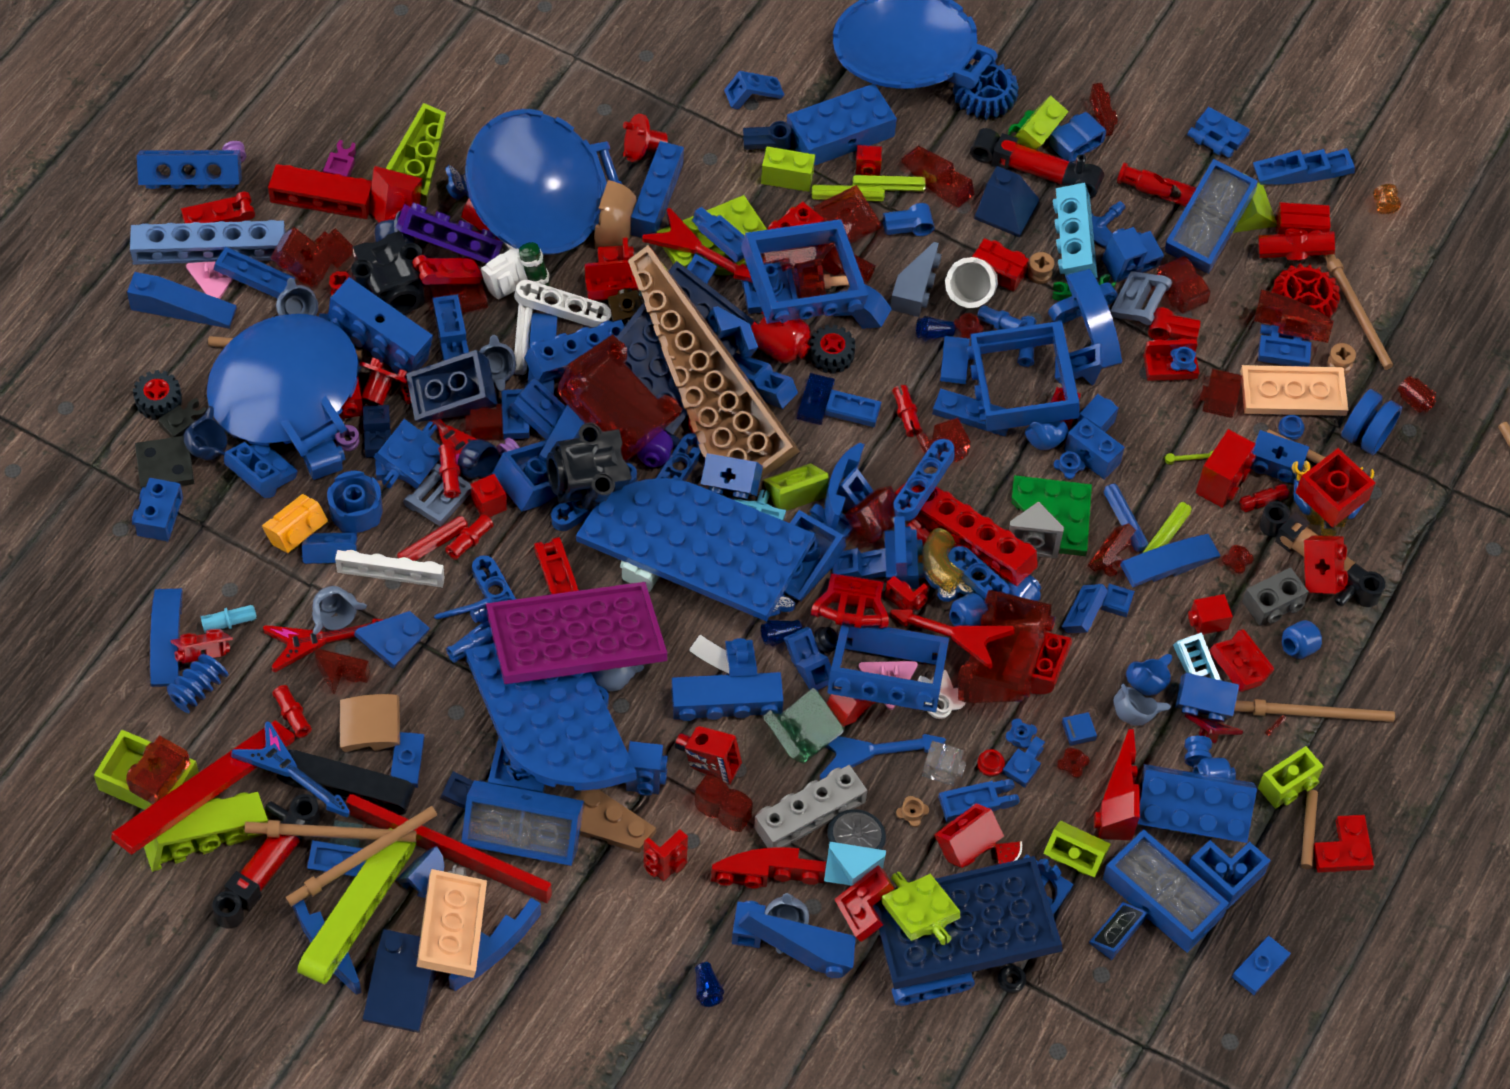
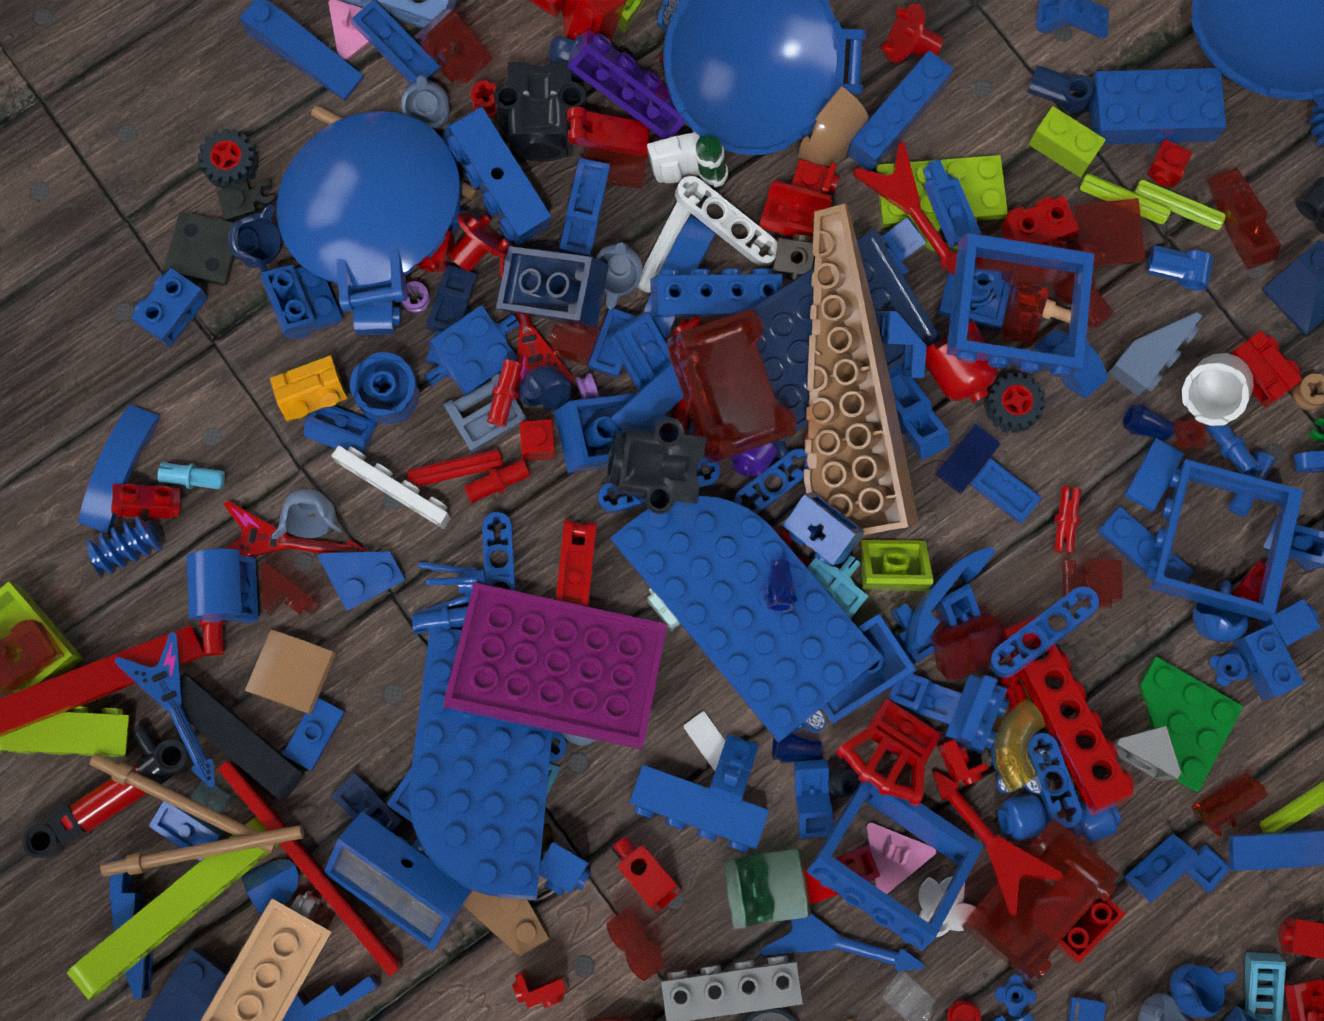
camera: 25 degrees right, 20 degrees up
(290, 676) = (222, 586): none -> blue brick
(336, 245) = (500, 43): clear red bracket -> none
(719, 514) = (780, 589): none -> clear blue cone
(1125, 516) = (1265, 762): blue axle -> none

